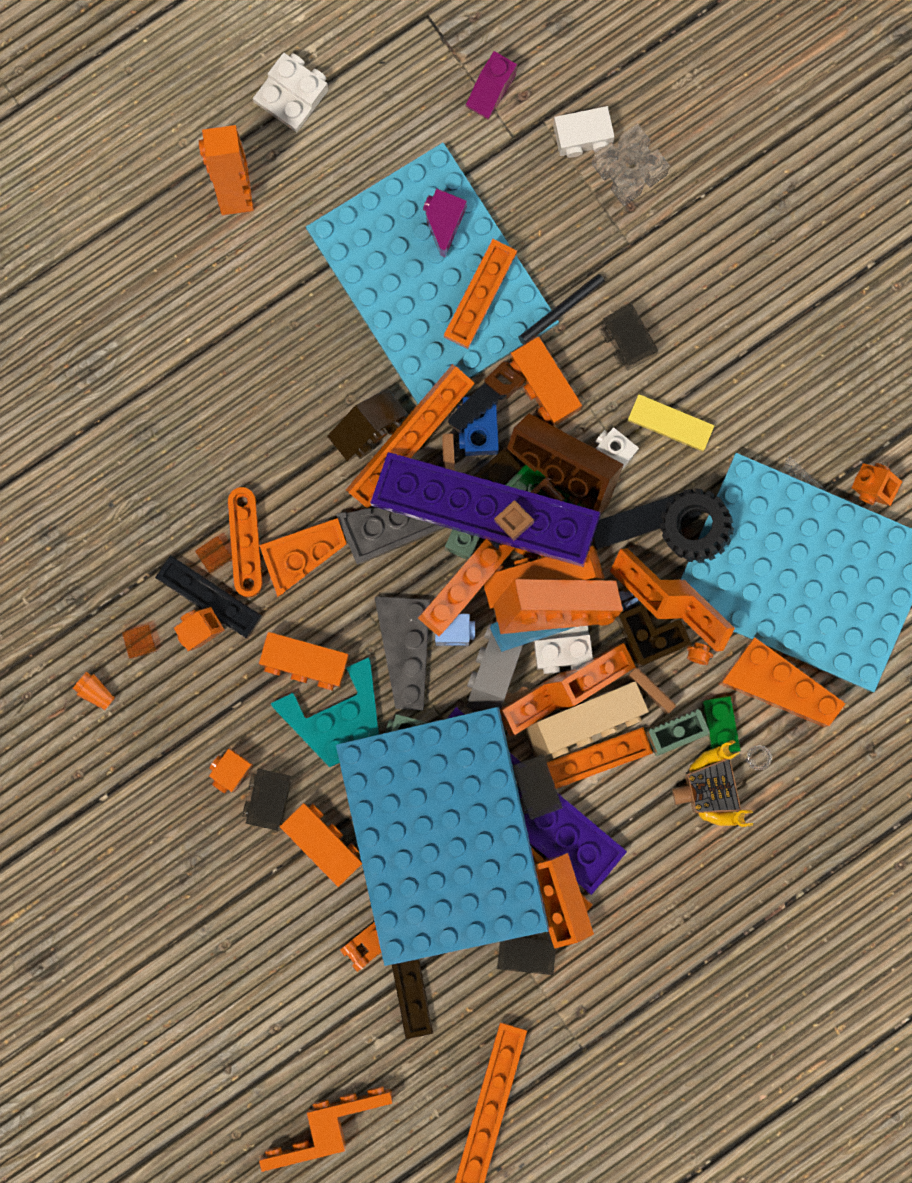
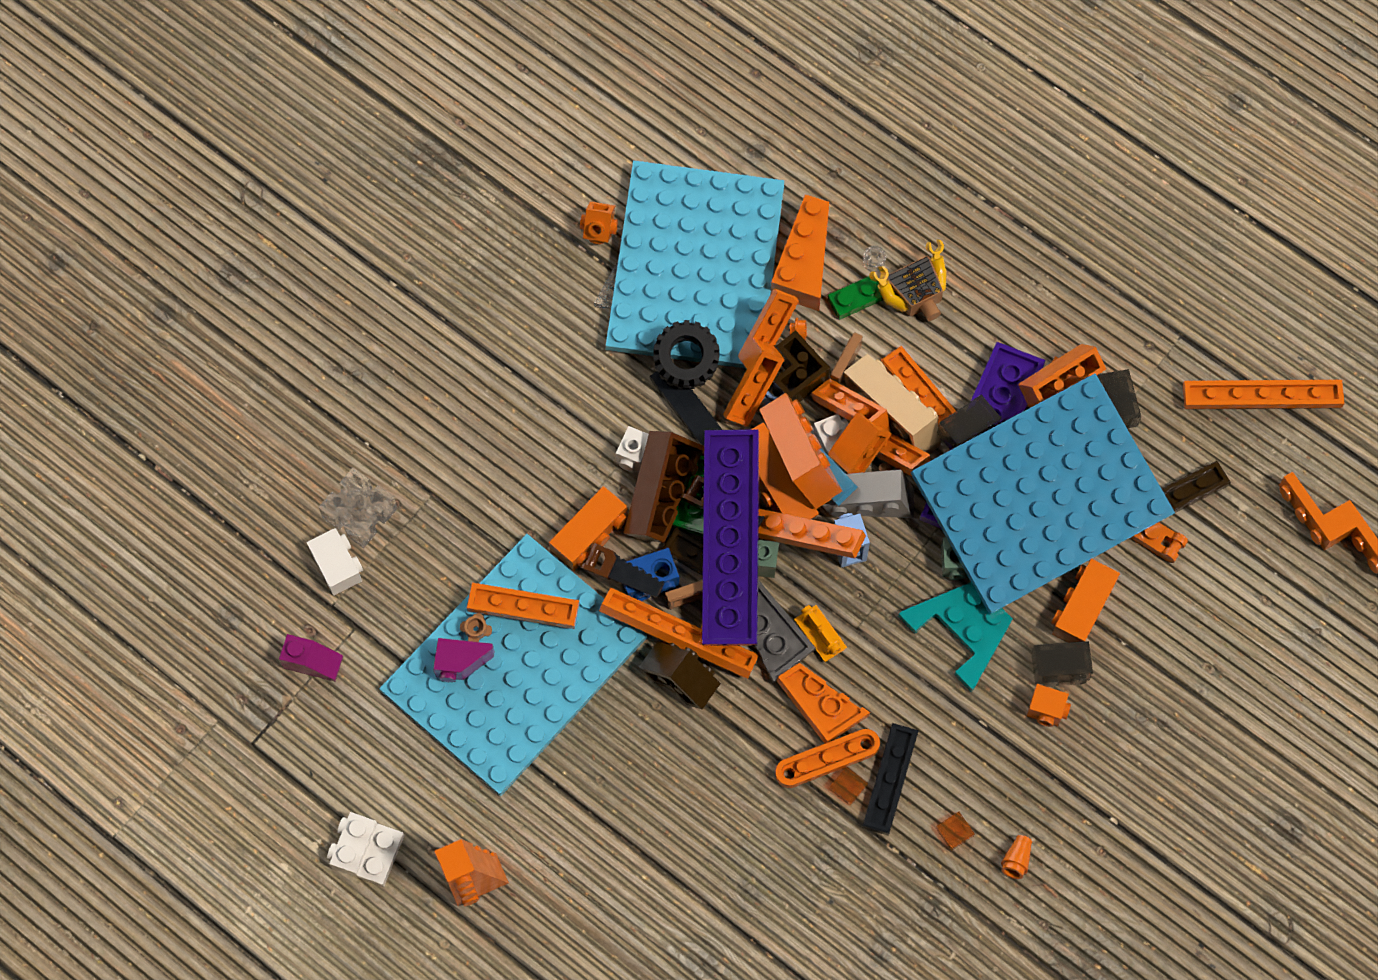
camera: 105 degrees left, 15 degrees down
(198, 628) = (925, 773): orange brick -> none
(303, 661) = (922, 669): orange brick -> none
(372, 575) = (820, 632): none -> light orange hinge
(404, 648) = (871, 586): flat silver wing -> none
(472, 236) = (476, 620): none -> medium nougat plate
(514, 520) = (735, 502): medium nougat tile -> none
(547, 667) = (859, 444): none -> orange panel
(561, 309) = (515, 532): black bar -> none
(628, 337) = (524, 467): clear smoke brick -> none
(671, 423) = (593, 412): light yellow tile -> none
(677, 732) = (877, 326): sand green brick -> none

